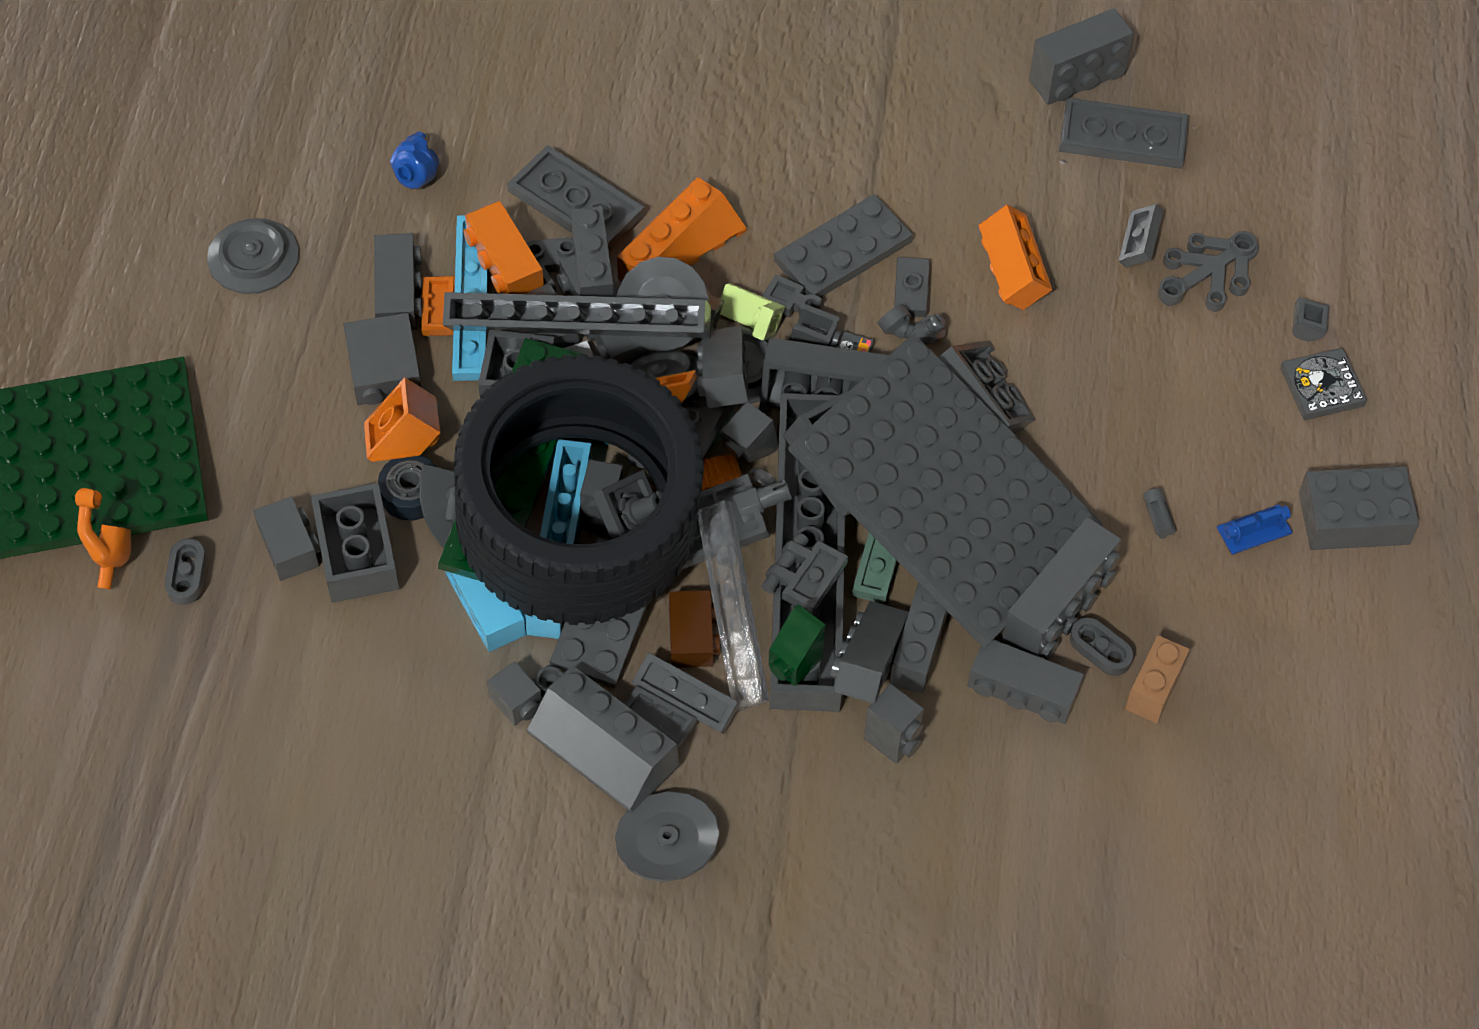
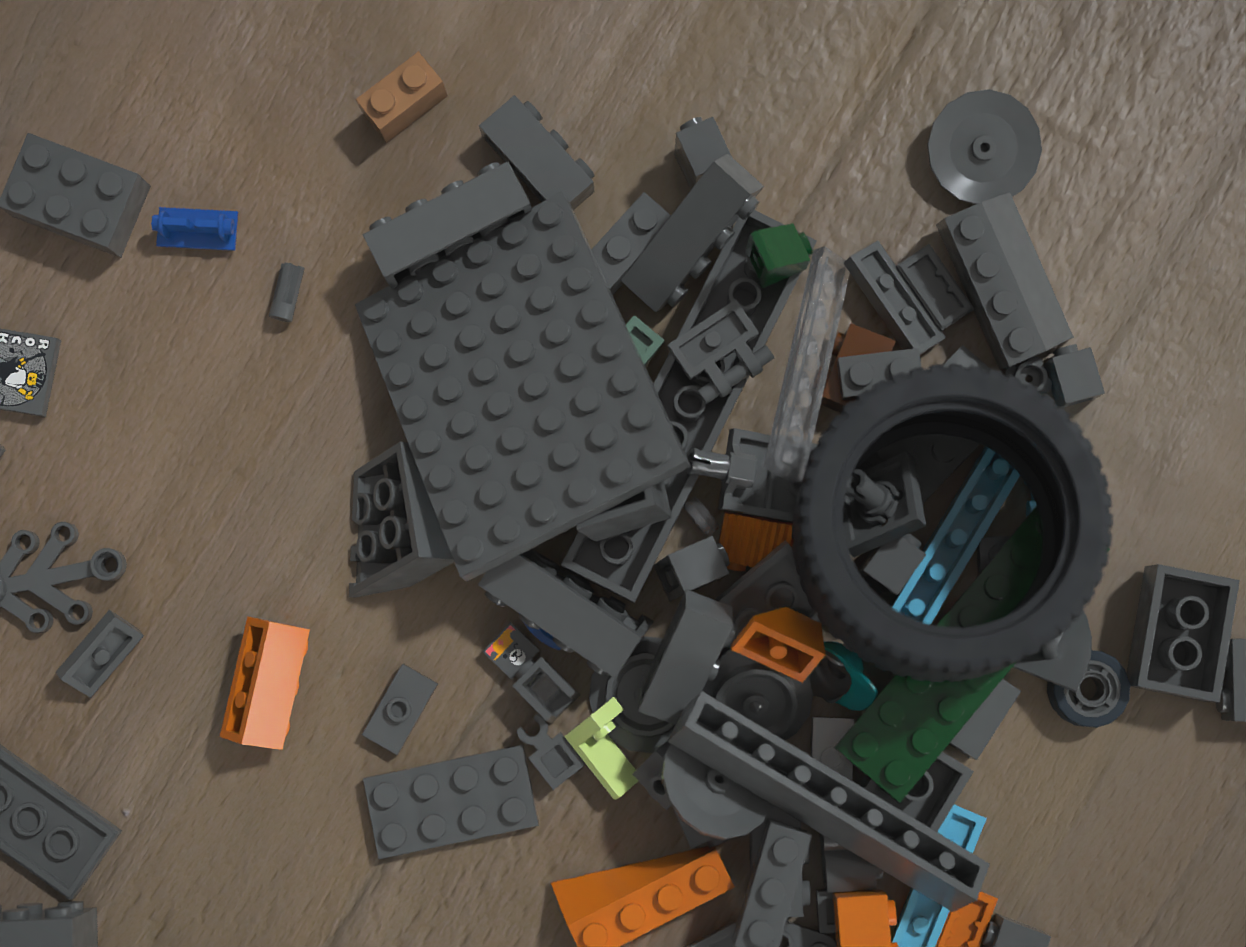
camera: 150 degrees left, 25 degrees up
(380, 356) = (1058, 876): dark grey brick -> none
(402, 424) = (1073, 765): orange slope -> none
(672, 619) = (865, 370): none -> dark grey plate
(928, 330) = (417, 637): dark grey arm -> none
(1104, 646) = (437, 165): dark grey plate -> none

